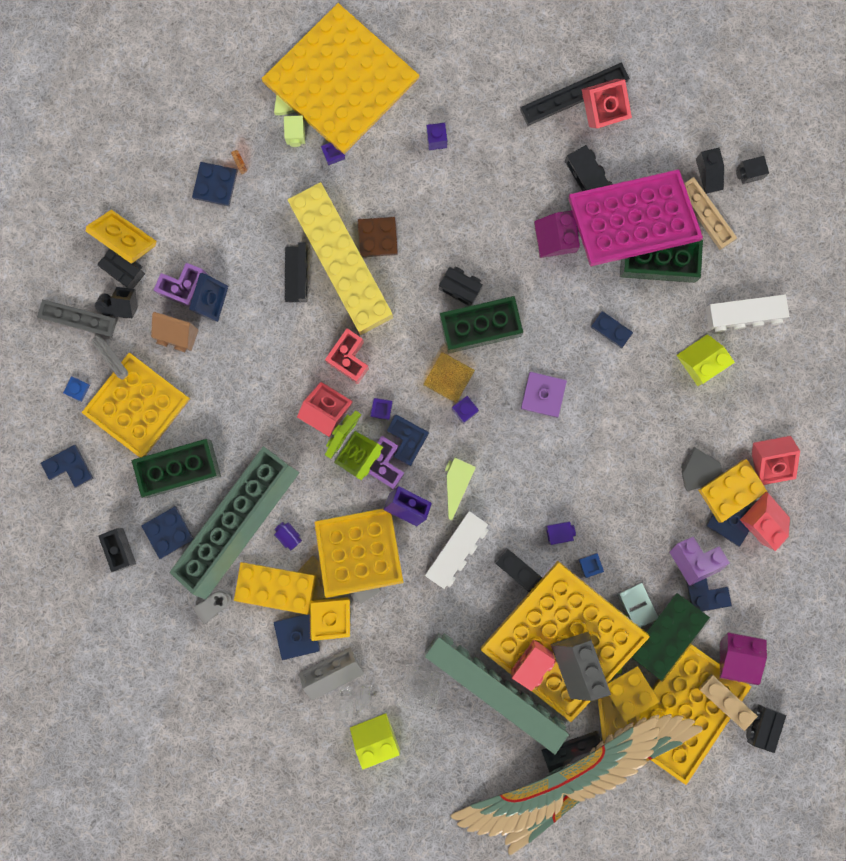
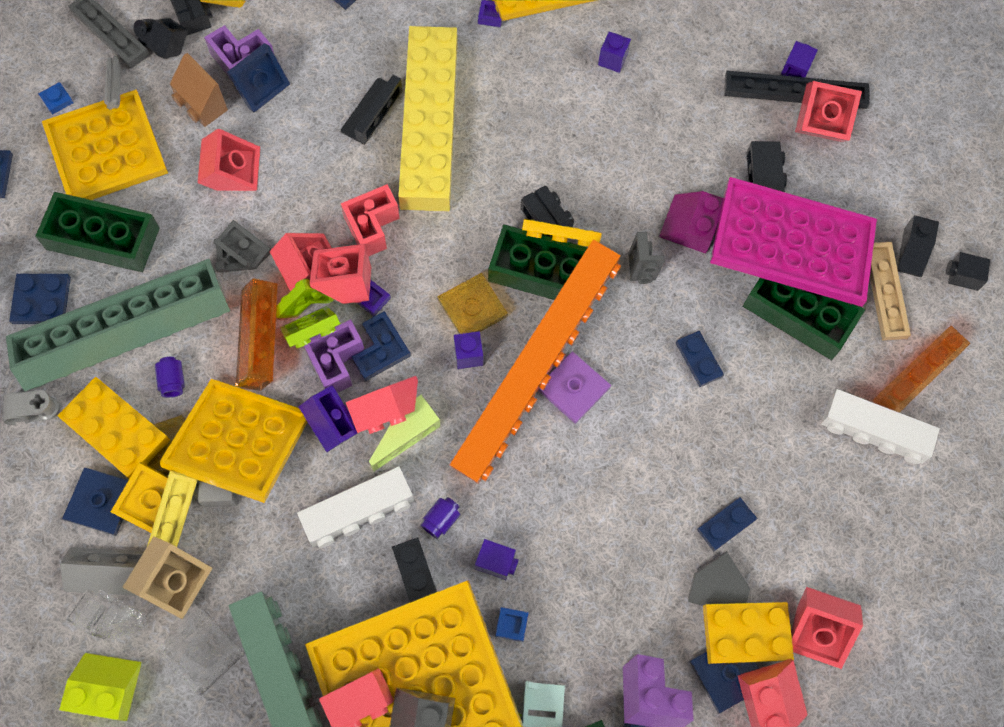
camera: 25 degrees right, 15 degrees down
(227, 369) = (228, 162): none -> coral slope
(273, 424) = (239, 249): none -> dark grey slope
(325, 477) = (256, 335): none -> clear orange brick
(349, 621) = (173, 508): none -> light yellow tile
(356, 407) = (342, 273): none -> coral slope
(373, 659) = (167, 577): none -> tan brick
(377, 237) = (485, 119): reddish brown plate -> none
(437, 478) = (384, 406): none -> coral slope
(487, 295) = (560, 233): none -> yellow wing
(511, 526) = (440, 517): none -> dark purple brick
(515, 394) = (535, 362): none -> orange brick
(539, 284) = (642, 264): none -> dark grey bracket
(565, 71) = (799, 60): none -> dark purple brick
(685, 429) = (727, 524): none -> dark blue plate
(705, 359) = (797, 455): neon yellow slope -> none
(756, 260) = (922, 370): none -> clear orange brick

